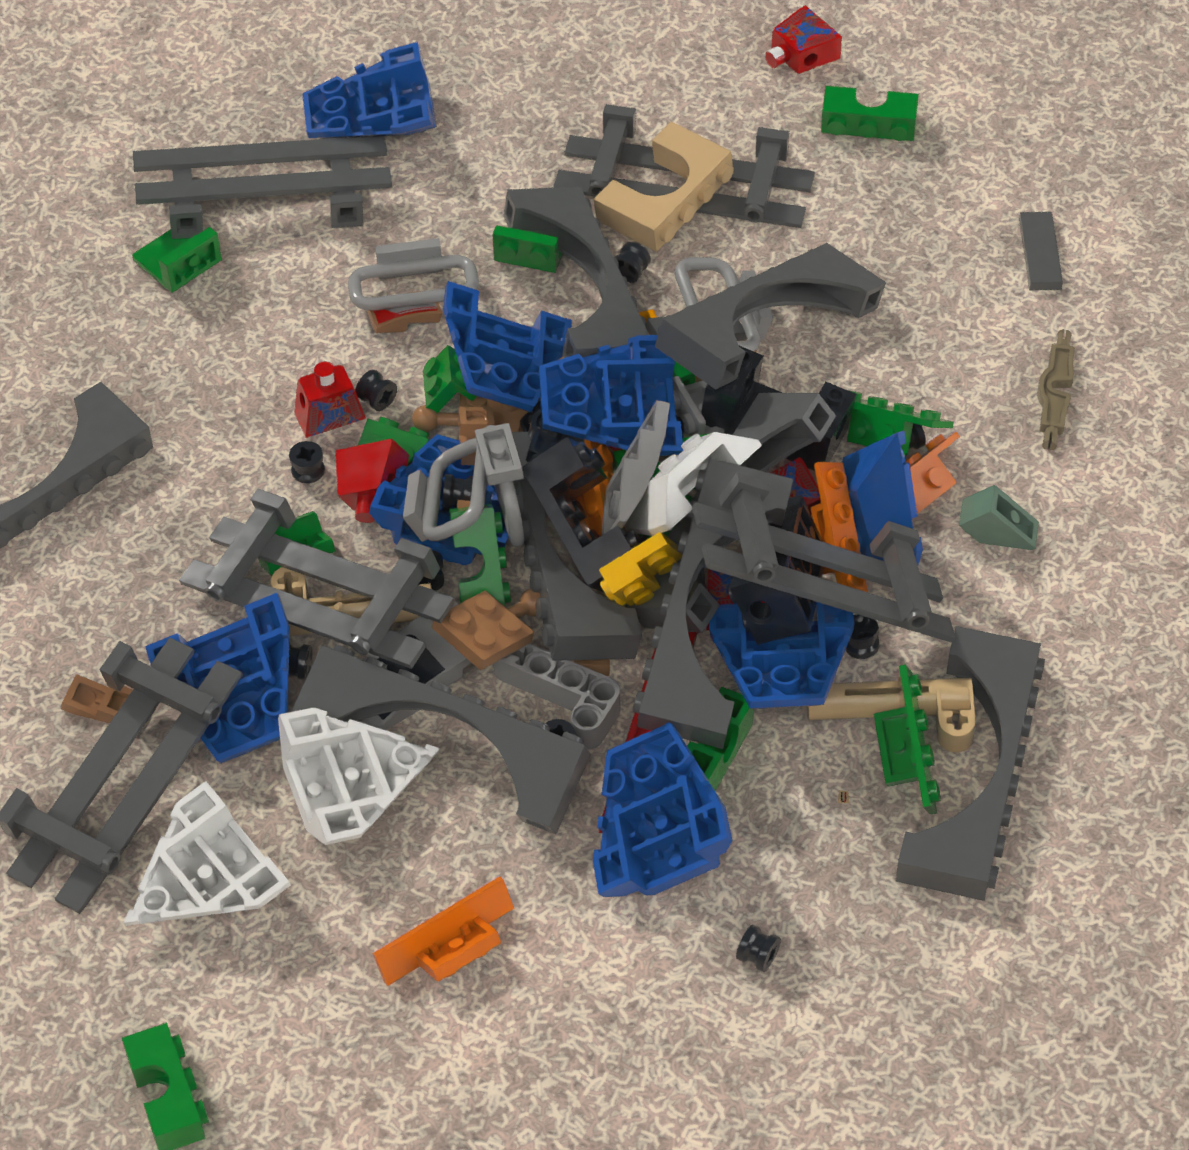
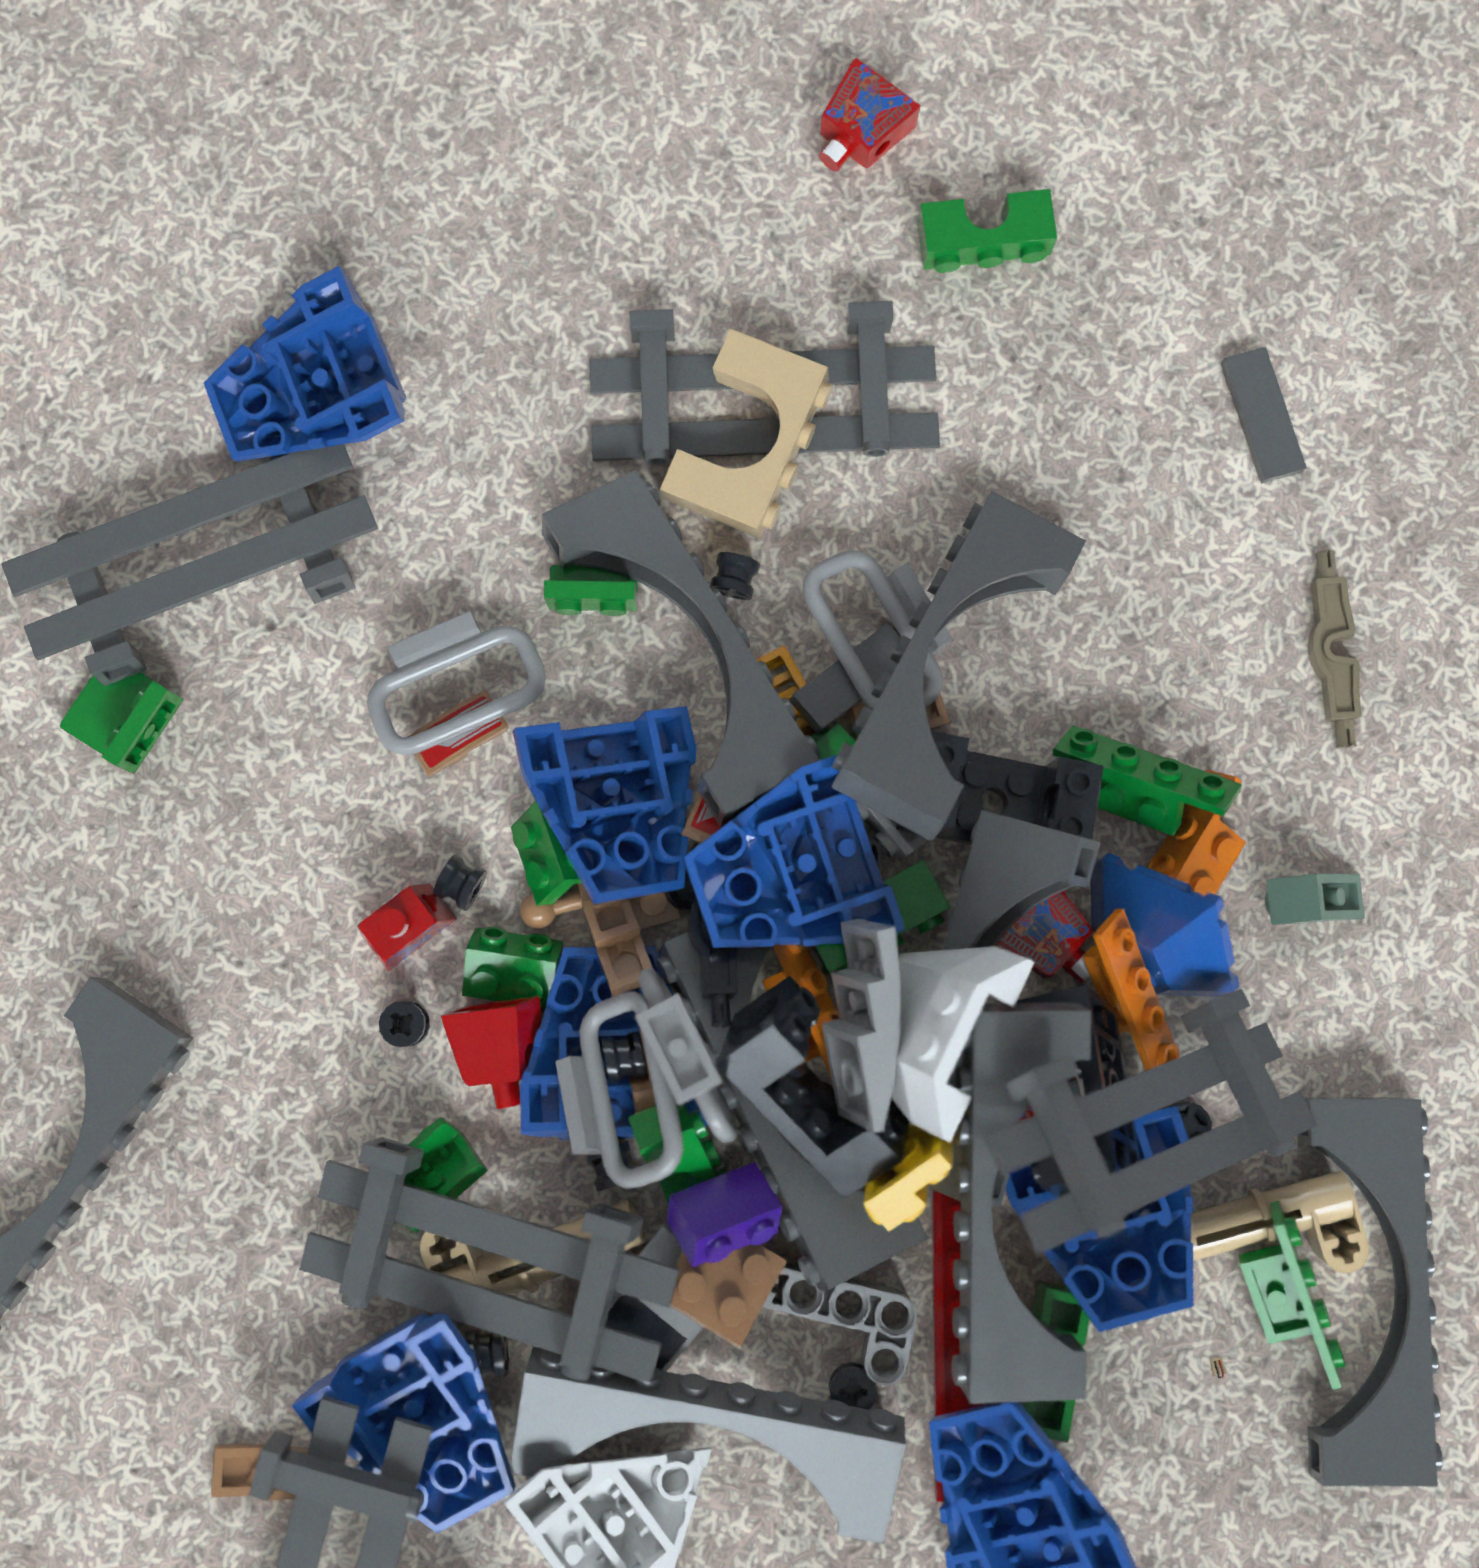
camera: 15 degrees left, 30 degrees up
(498, 579) = (724, 1214): none -> dark purple brick

